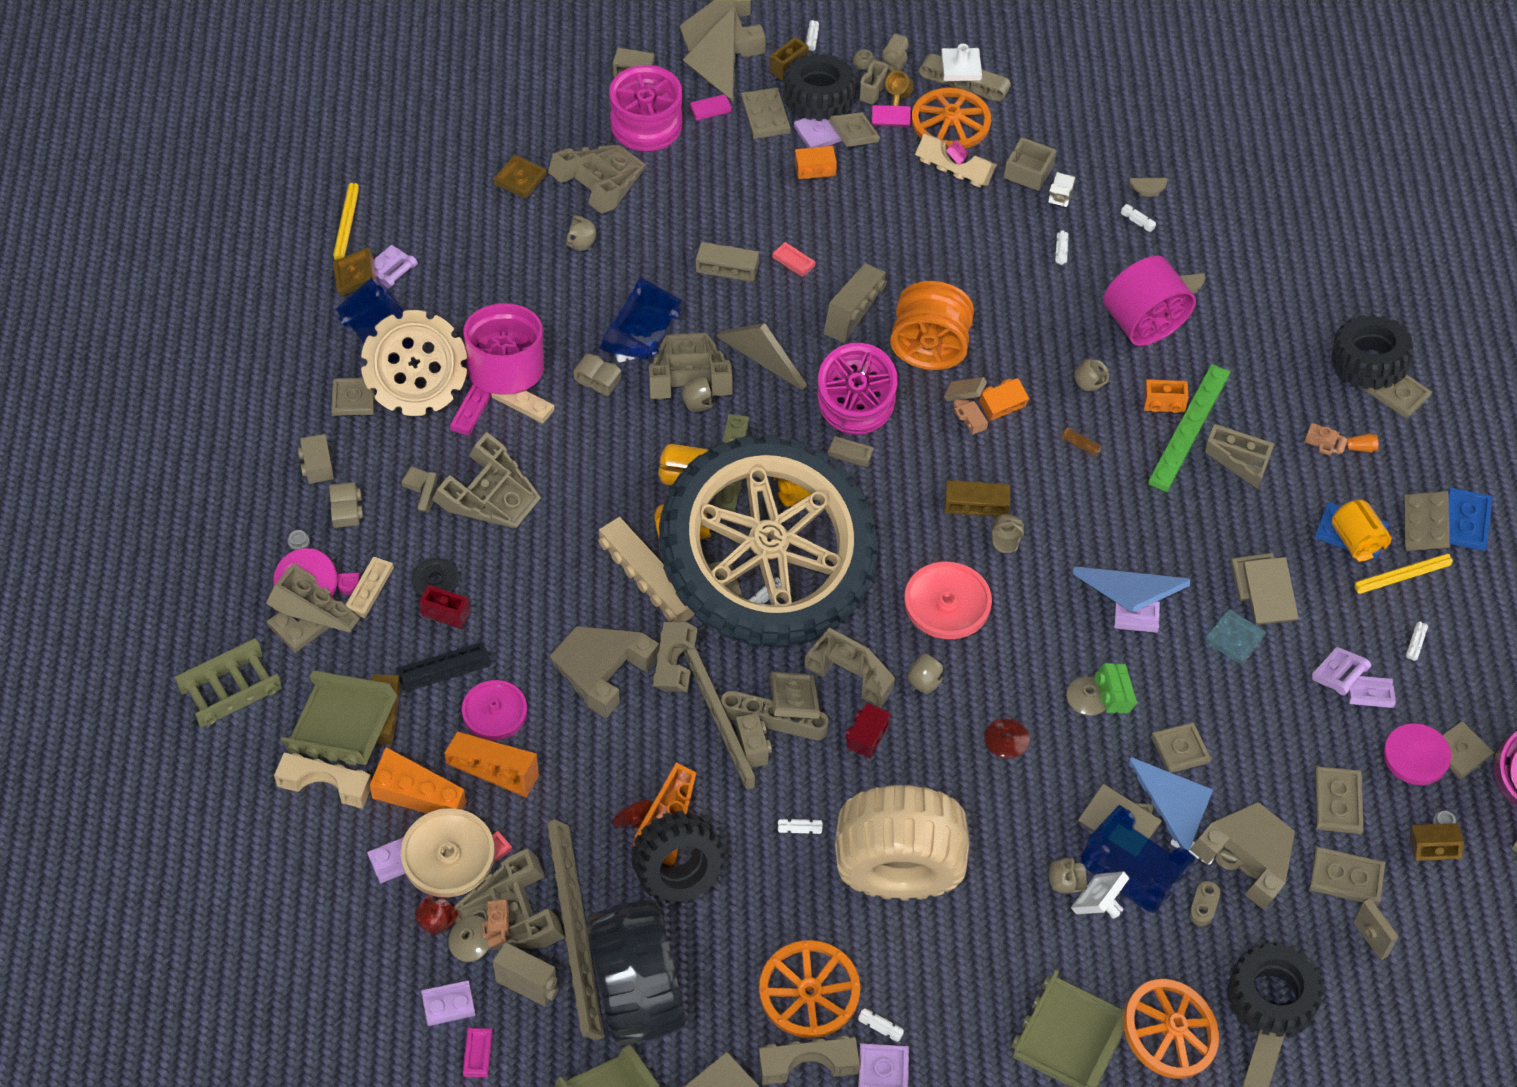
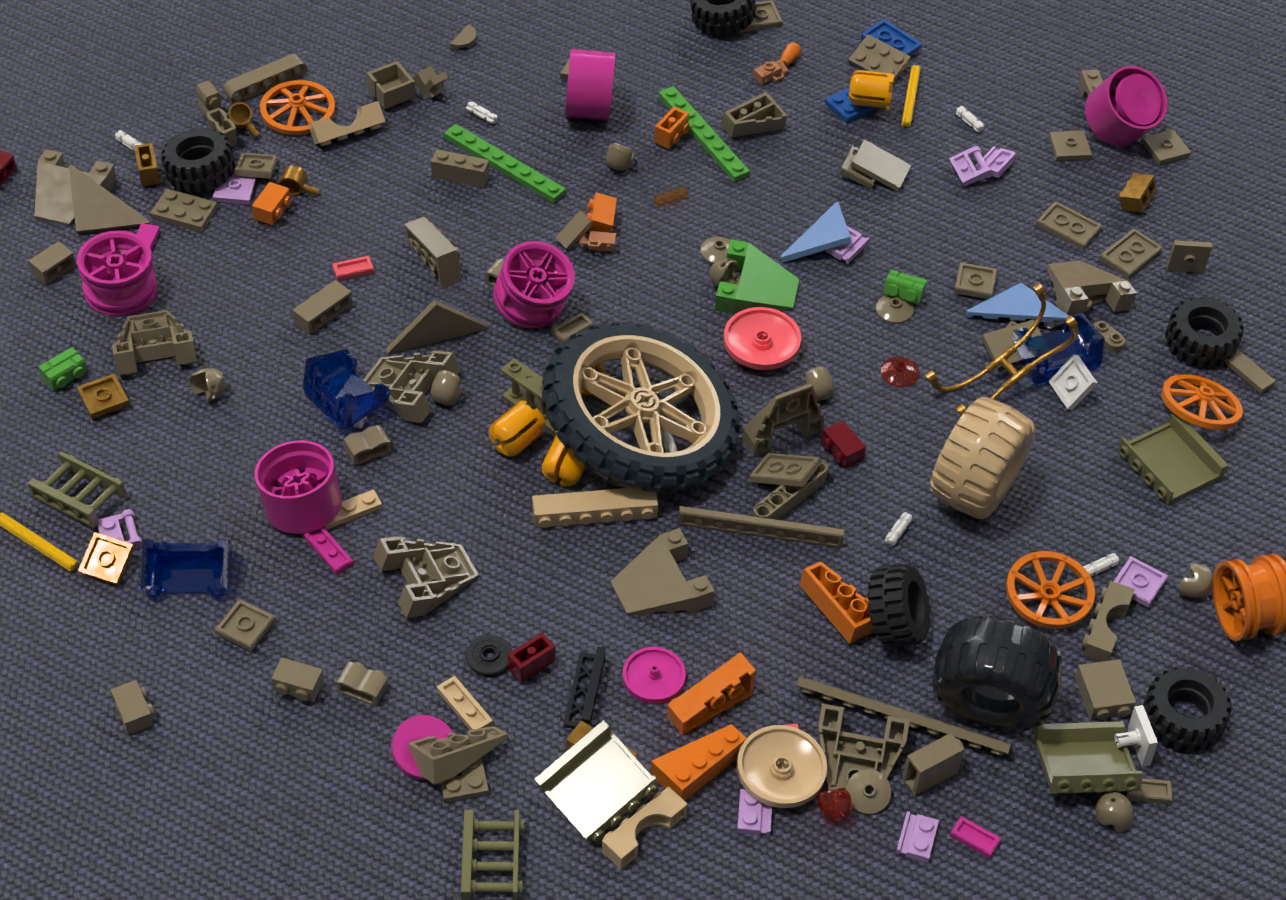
camera: 60 degrees left, 5 degrees down
(224, 369) = (132, 707): none -> dark tan brick
(298, 540) = (372, 736): light grey plate -> none
(347, 582) = (449, 717): dark pink tile -> none
(393, 206) = (72, 505): none -> olive fence
(415, 479) = (372, 621): dark tan tile -> none
(428, 492) = (400, 617): dark tan tile -> none
(447, 352) = (264, 553): tan piece -> none
(497, 922) = (875, 759): nougat piece -> none
(527, 136) = (62, 369): none -> bright green brick
(632, 815) = (829, 623): clear red dish -> none
(674, 640) = (711, 538): dark tan arch -> none
(752, 739) = (805, 513): dark tan brick -> none
(856, 163) = (295, 180): none -> pearl gold piece
(863, 59) = (186, 123): dark tan plate -> none
(891, 116) = (262, 138): dark pink tile -> none
(932, 325) = (510, 209): orange wheel -> none
(957, 152) = (342, 117): dark pink tile -> none
(961, 64) = (257, 69): white tile -> none
(972, 267) = (460, 168): none -> dark tan brick
(977, 498) = (678, 277): pearl gold brick -> none
(1013, 298) = (505, 163): none -> bright green plate
(1020, 568) = (760, 285): none -> bright green wedge
(1043, 521) = (715, 249): none -> dark tan dish
(1067, 876) = (1044, 396): dark tan helmet -> none
(1115, 832) = (1002, 358): none -> pearl gold bar
(1138, 218) = (490, 59): white axle -> none
(1235, 636) = (901, 205): clear light blue tile -> none
(1417, 754) = (1062, 165): dark pink piece -> none
(1444, 817) = (1119, 182): light grey plate -> none

